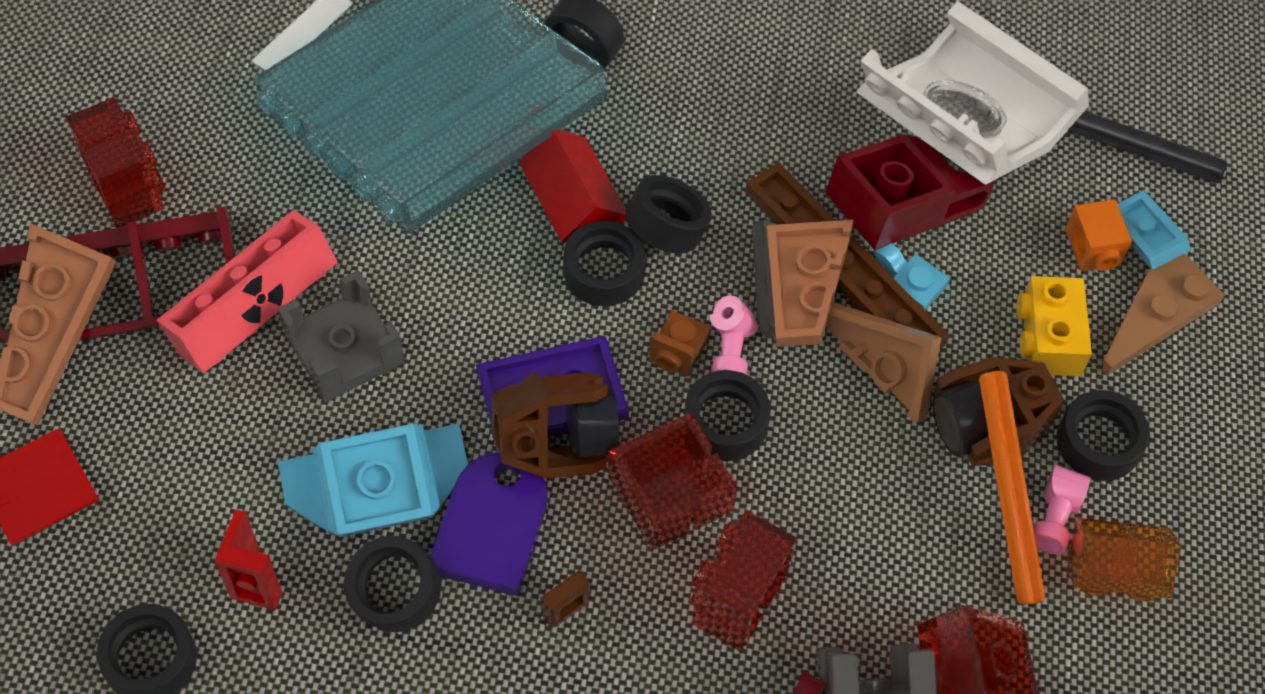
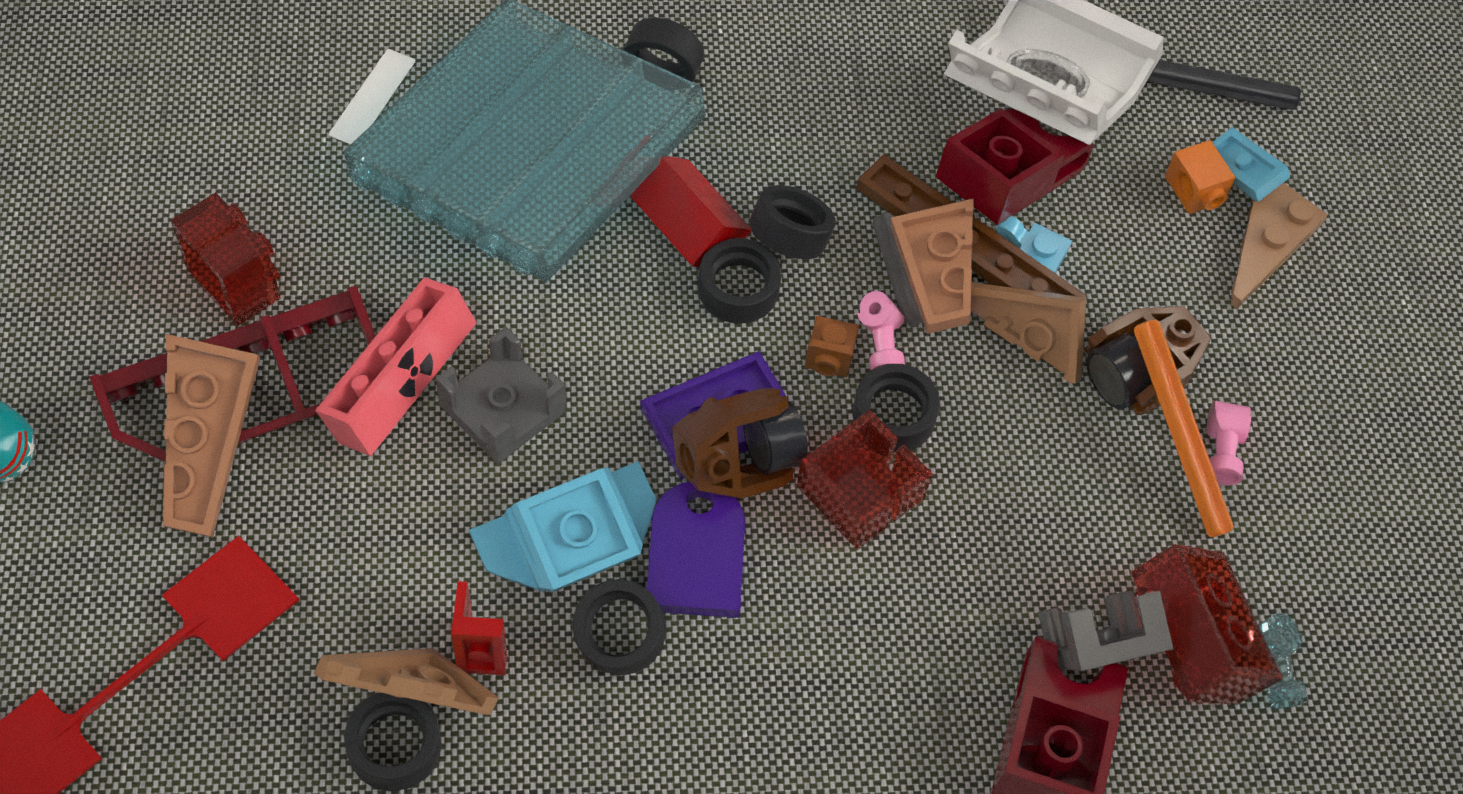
camera: 15 degrees left, 0 degrees up
(175, 593) = (409, 674): none -> medium nougat wing
(565, 599) = (789, 611): reddish brown tile -> none
(744, 574) = (955, 560): clear red piece -> none
(1055, 324) = (1182, 267): yellow brick -> none
(1115, 408) = (1261, 341): black tyre -> none
(1123, 559) = (1298, 477): clear orange brick -> none

